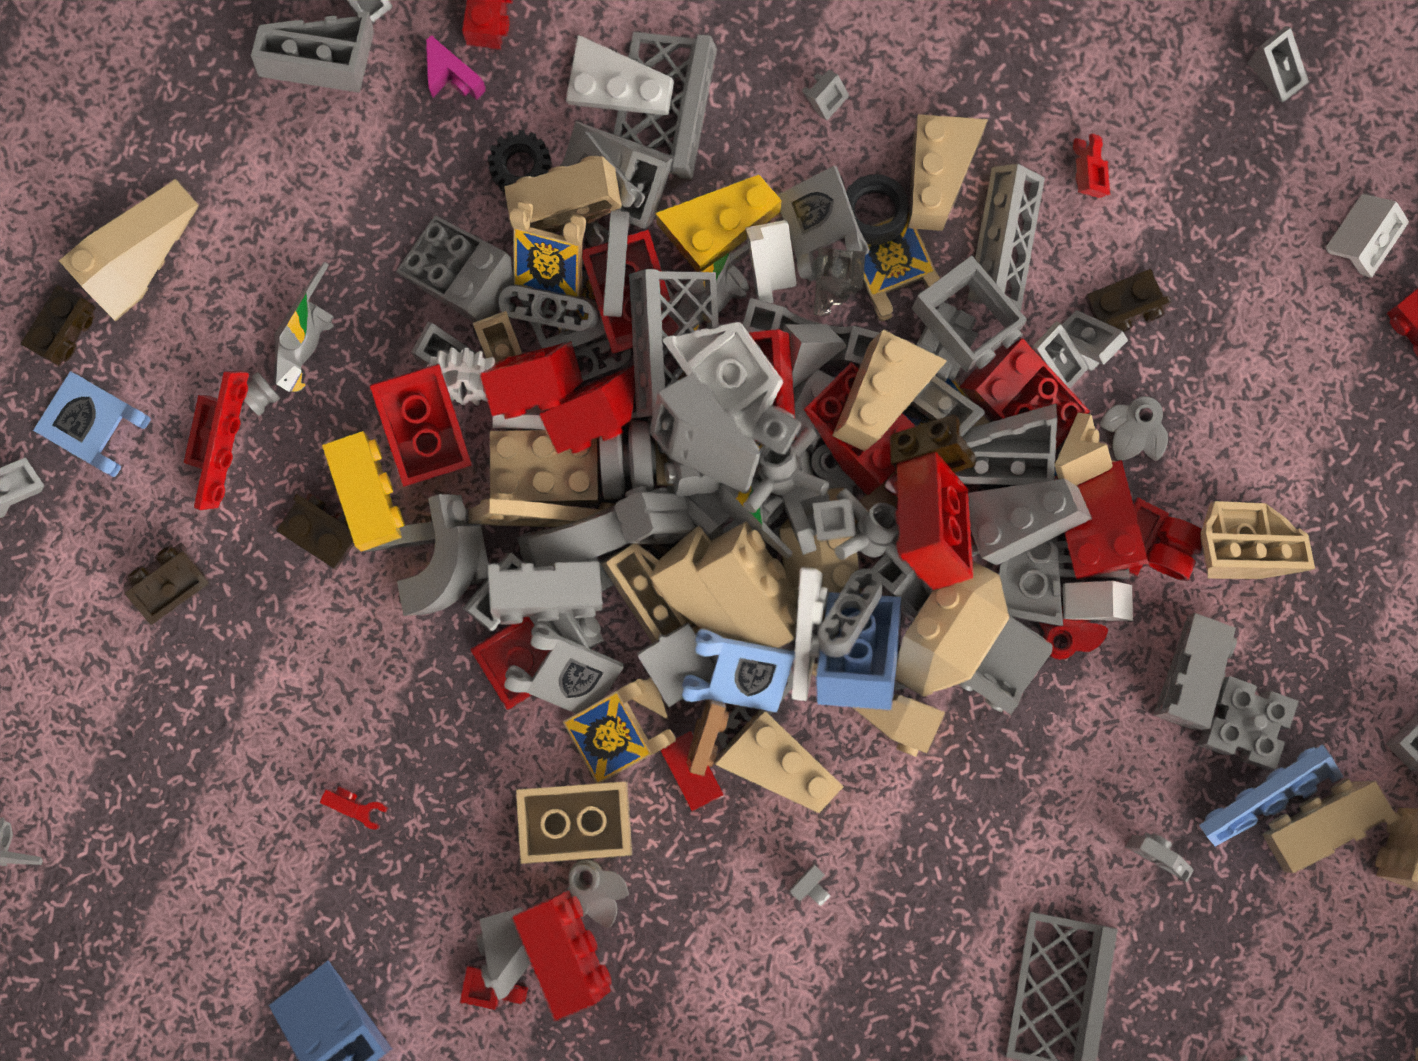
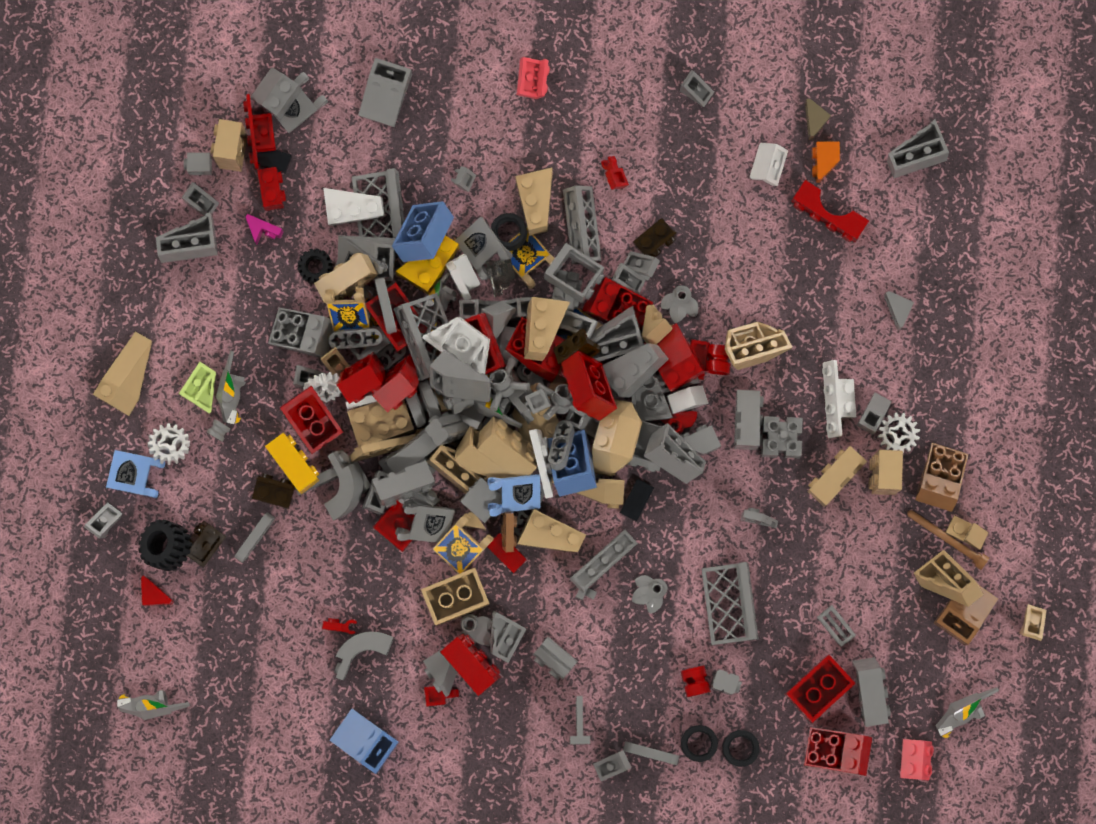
camera: 20 degrees left, 0 degrees up
(47, 643) = (152, 594): none -> red slope
(59, 326) = (100, 428): dark brown bracket -> none
(92, 564) = (153, 541): none -> black tyre
(148, 380) = (163, 449): none -> white gear
(213, 437) = (203, 460): red bracket -> none
(252, 309) = (200, 387): none -> yellowish green wing
(258, 601) = (254, 538): none -> light grey beam
(395, 850) = (361, 642): none -> light grey arch
(640, 922) = (504, 636): none -> light grey wing
(717, 991) = (554, 658): none -> light grey brick
(725, 158) = (423, 231): none -> medium blue brick
(776, 429) = (494, 365): light grey bracket -> none
(859, 843) = (603, 561): none -> light grey tile
(918, 927) = (646, 593): none -> light grey plate
(952, 751) = (636, 500): none -> black tile
(1047, 693) = (674, 454): none -> light grey wedge
(1099, 686) = (703, 441): none -> light grey slope
(1273, 795) = (804, 470): light blue wing -> none
(1368, 685) = (838, 398): none -> white bracket

